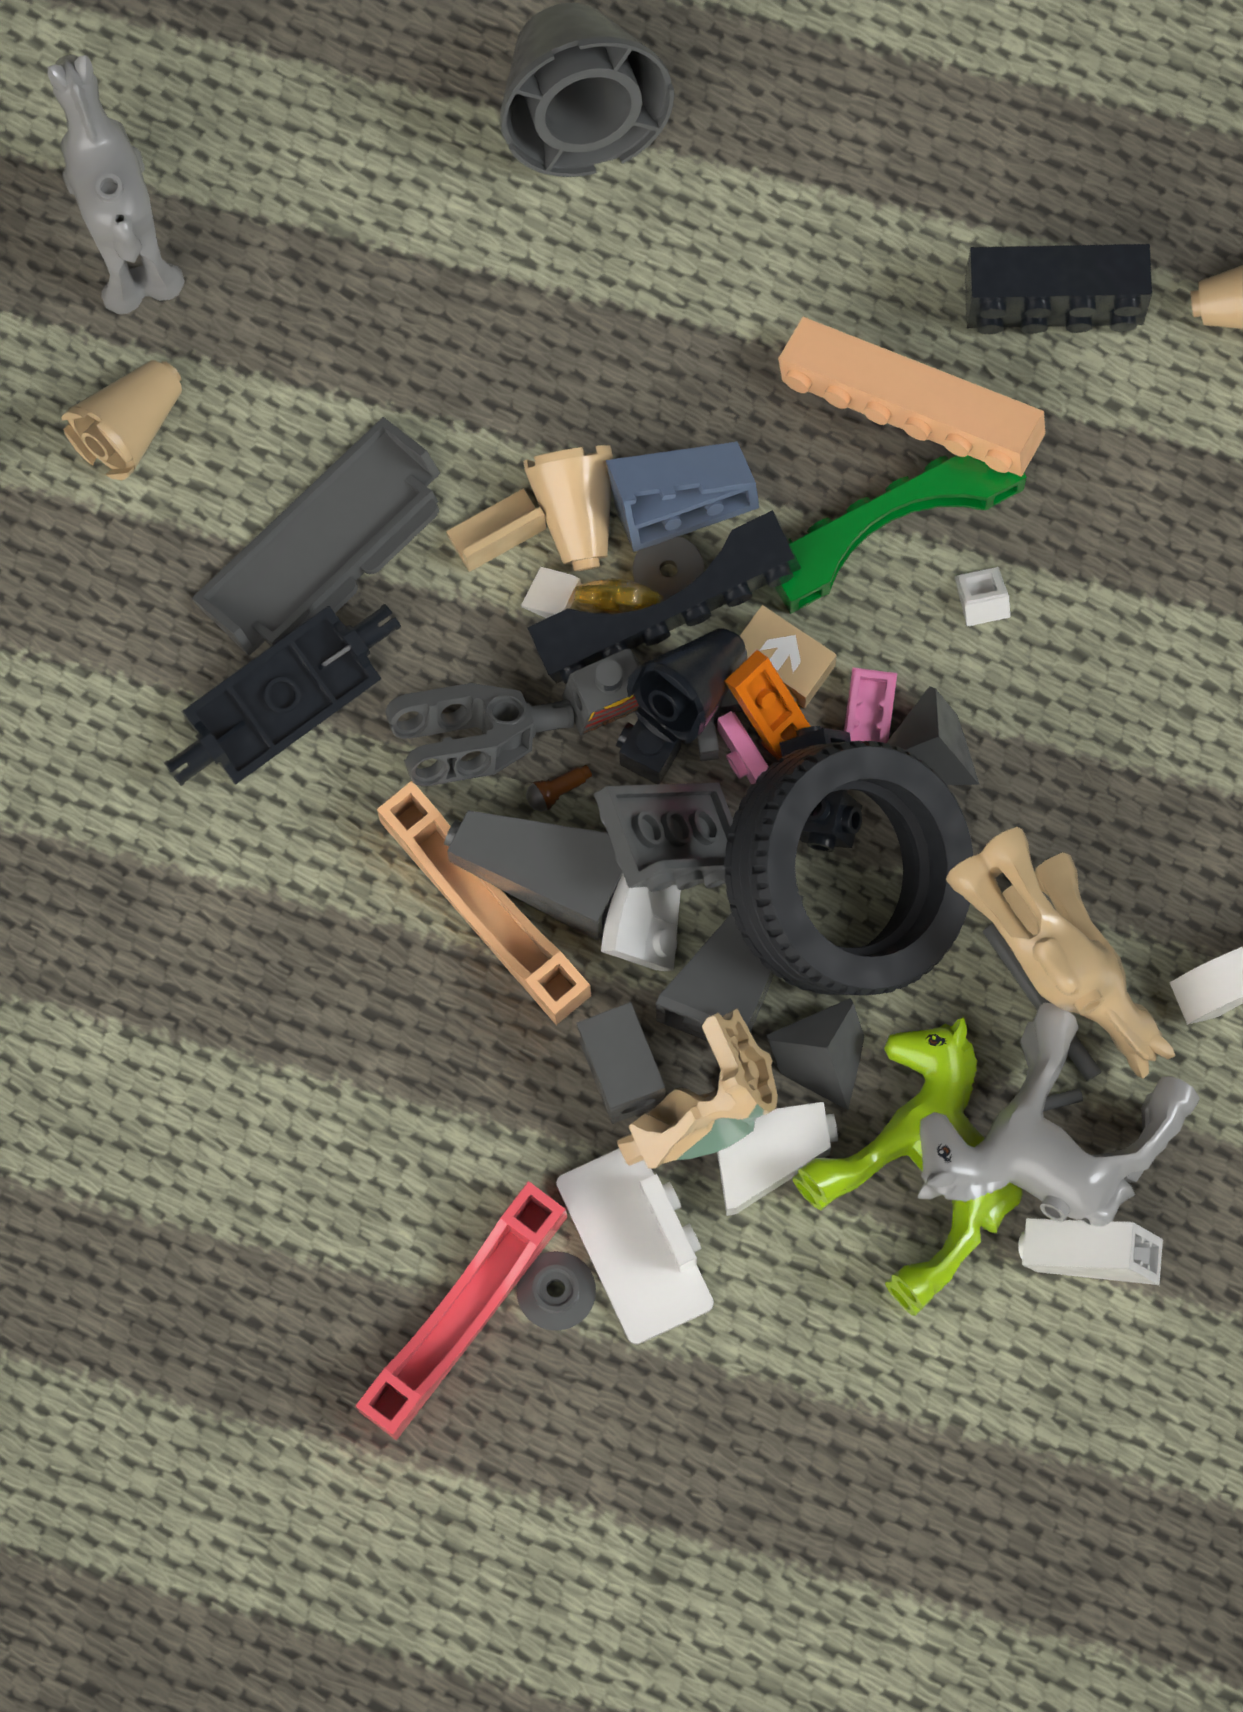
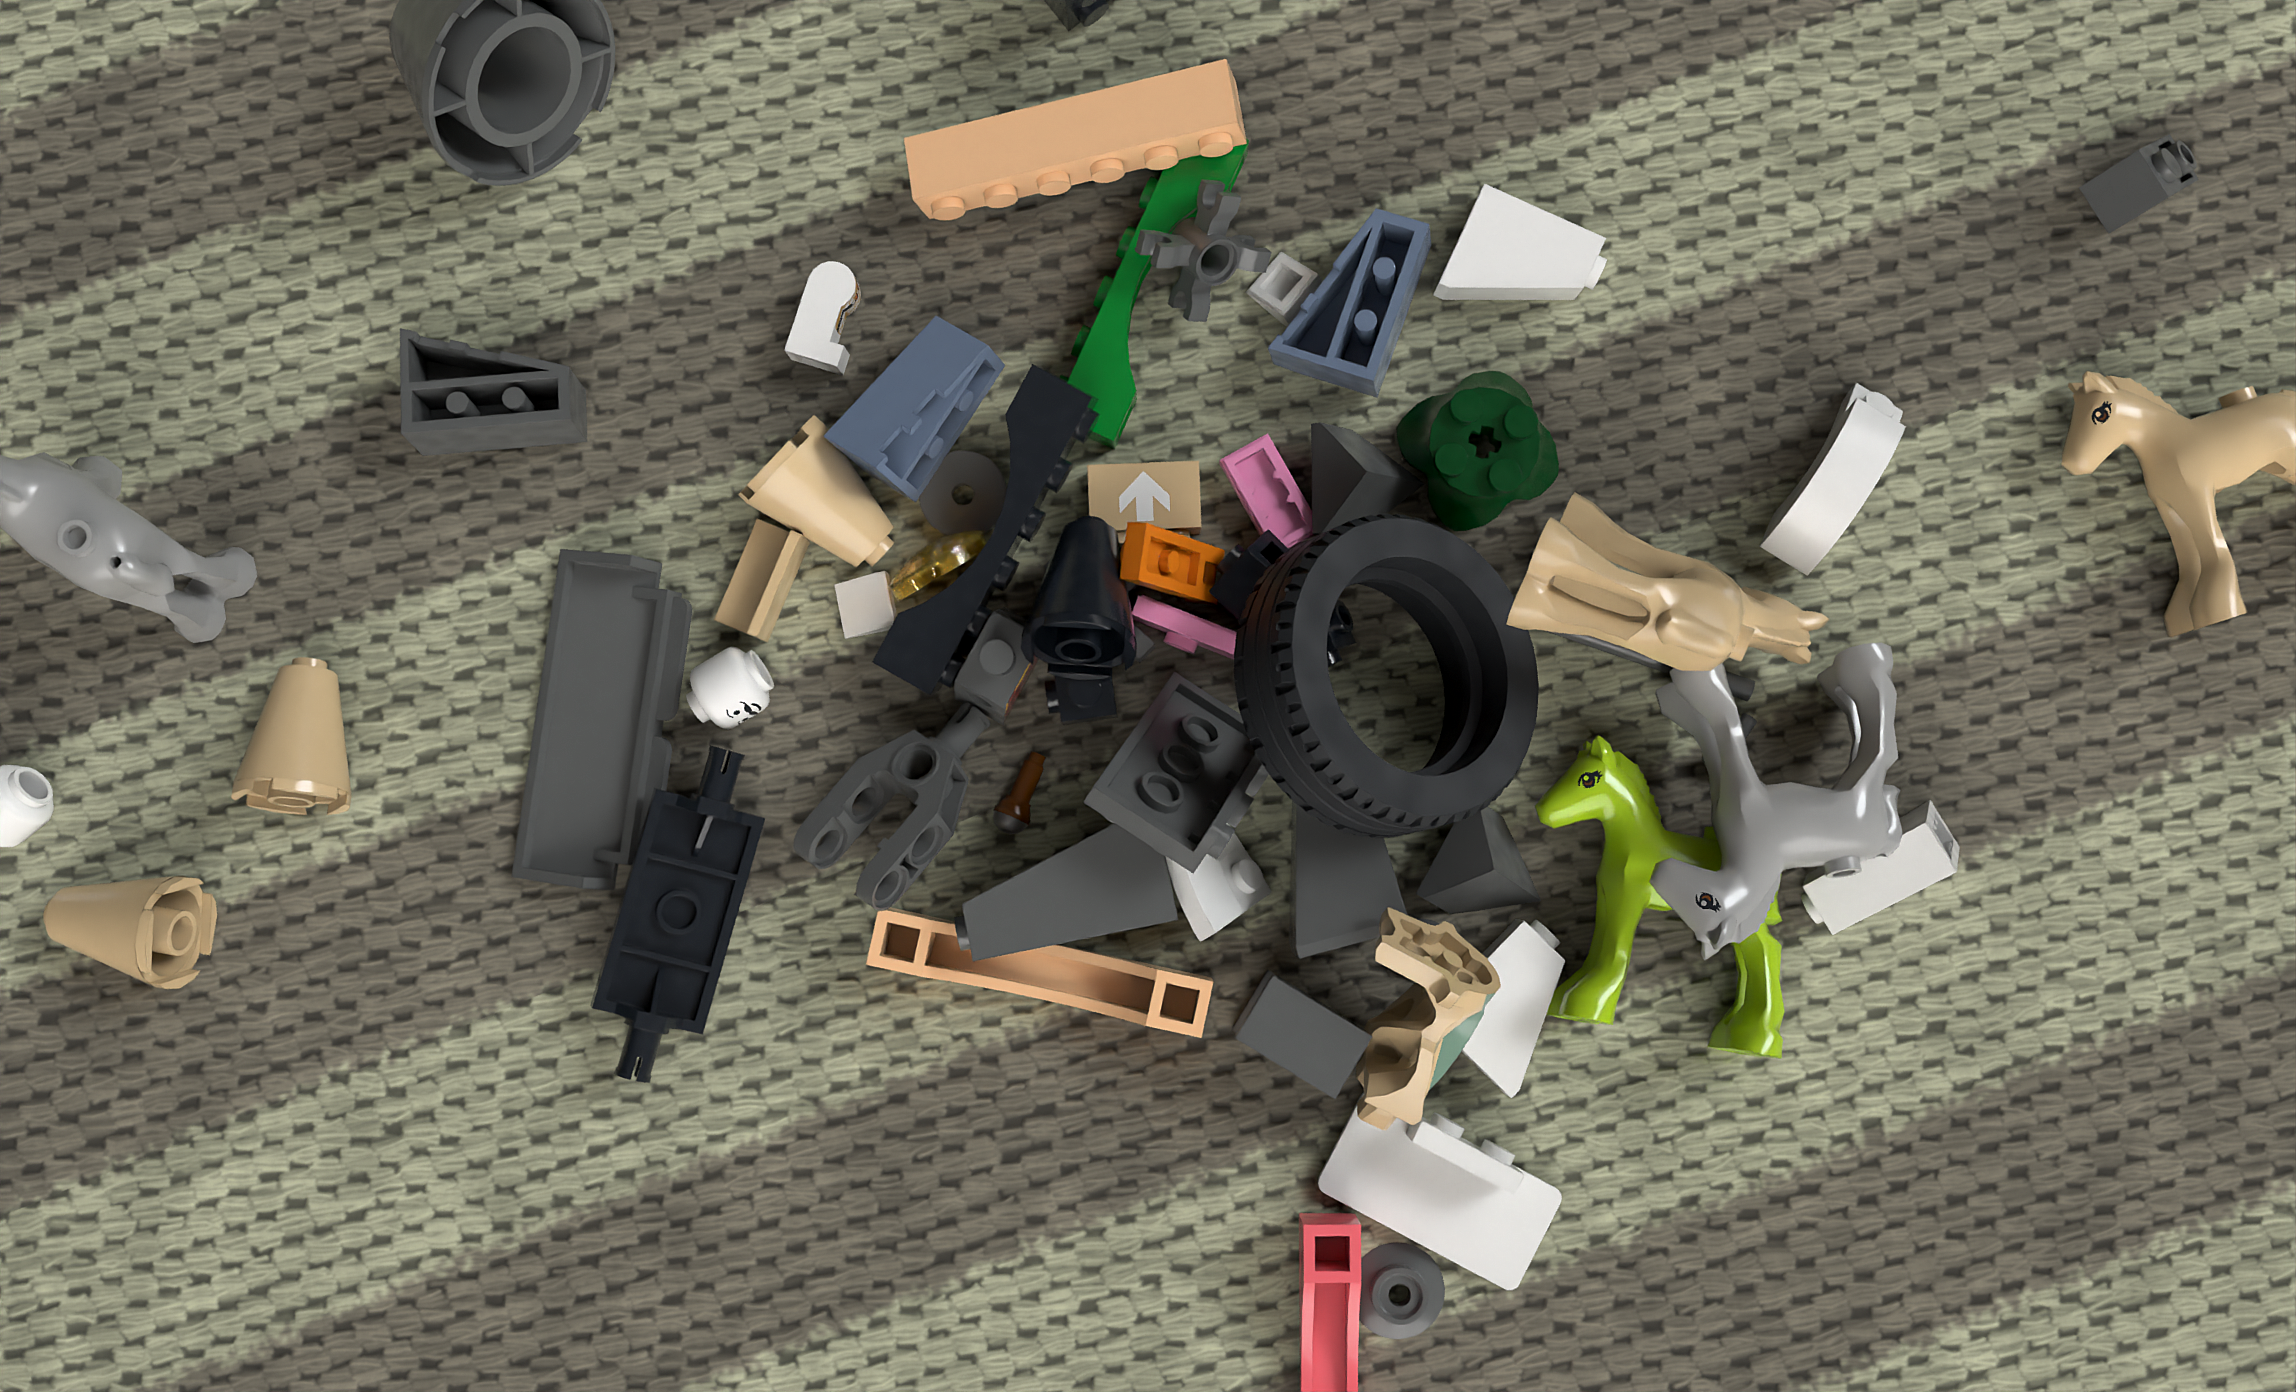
camera: 40 degrees left, 10 degrees up
(409, 289) = (485, 400): none -> dark grey wedge
(423, 580) = (729, 688): none -> white head
(663, 391) = (825, 304): none -> white leg
(940, 511) = (1203, 250): none -> dark grey pin
(1002, 802) = (1471, 489): none -> dark green brick
(1019, 636) = (1359, 309): none -> sand blue wedge
(1152, 679) = (1519, 254): none -> white slope

